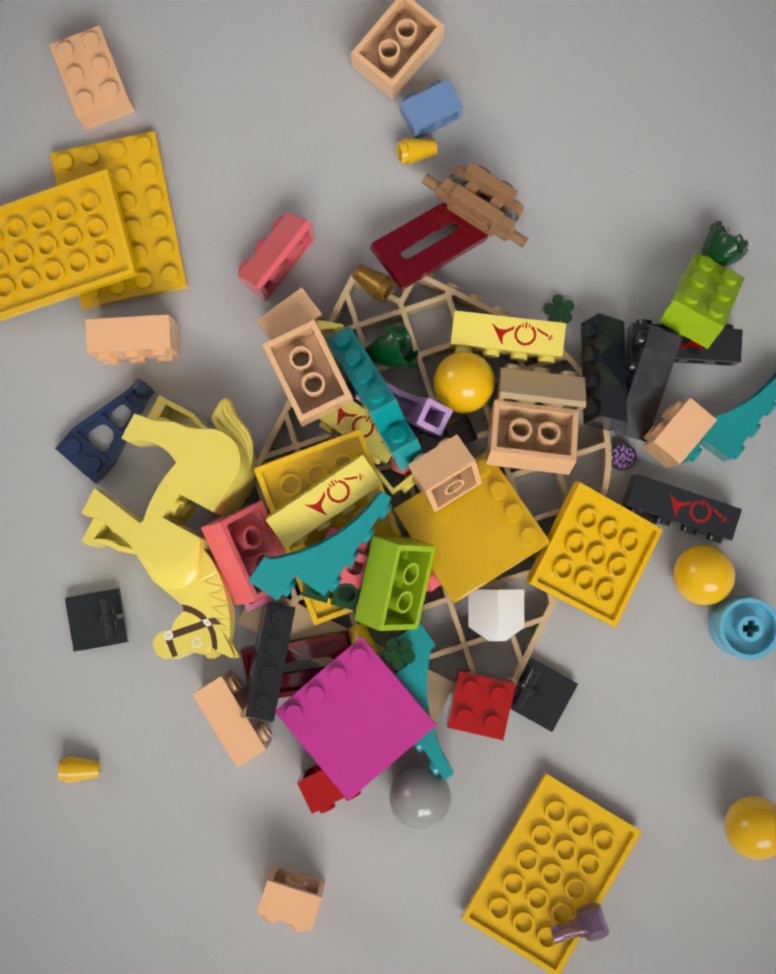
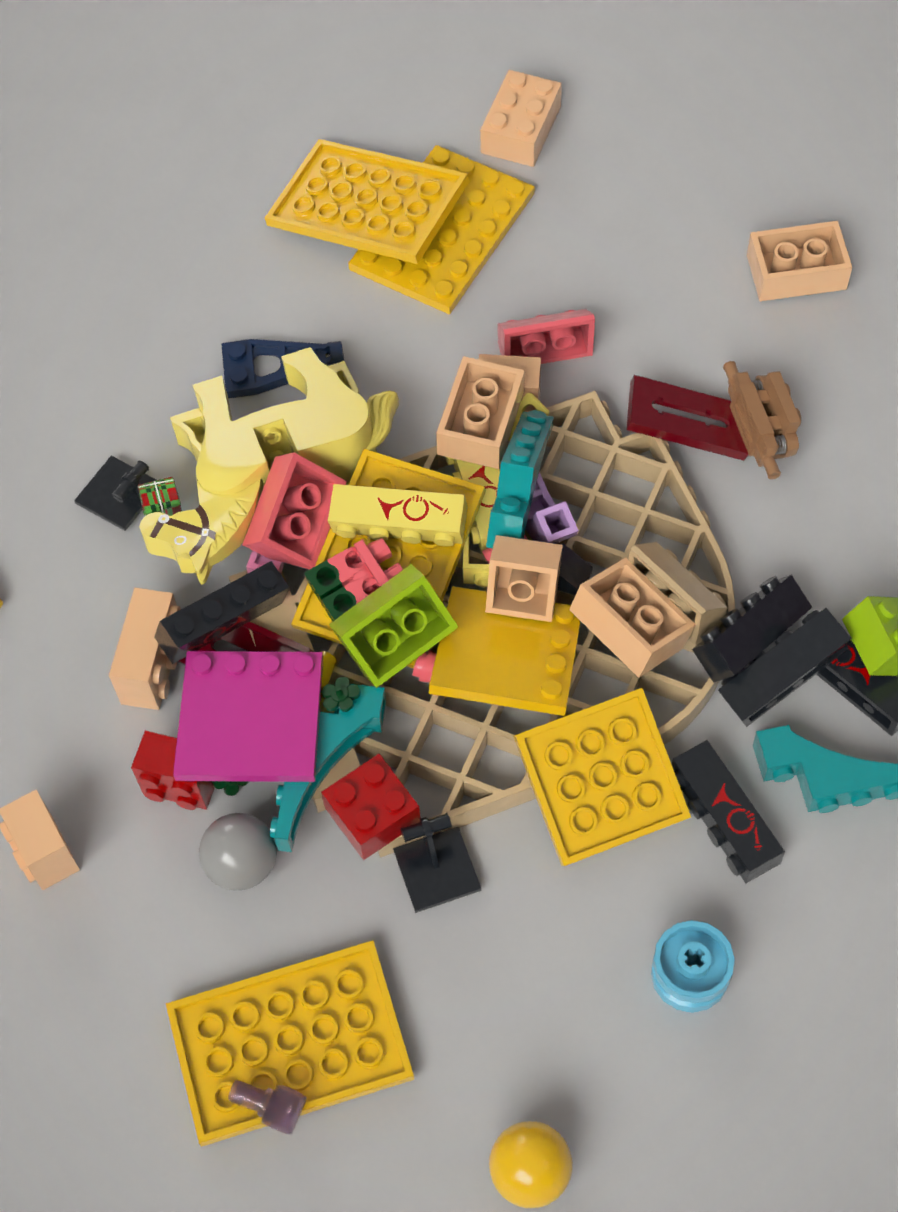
camera: 40 degrees right, 25 degrees down
(133, 339) = (366, 306): light nougat brick -> none
(144, 614) = (160, 497): none -> piece
(323, 561) = (351, 548): teal arch -> none
(374, 282) = (608, 406): pearl gold cone -> none
(393, 348) = (576, 461): dark green hat -> none
(414, 150) = (744, 348): yellow cone -> none
(431, 108) = (786, 327): medium blue brick -> none
(464, 382) = (610, 530): yellow piece -> none
(496, 613) = (464, 747): white slope -> none
(507, 336) = (687, 530): light yellow brick -> none
(559, 309) = (761, 564): dark green plant -> none
(622, 457) = (709, 726): black tile -> none
(679, 432) = (775, 718): light nougat brick -> none
(704, 575) = (693, 883): yellow piece -> none

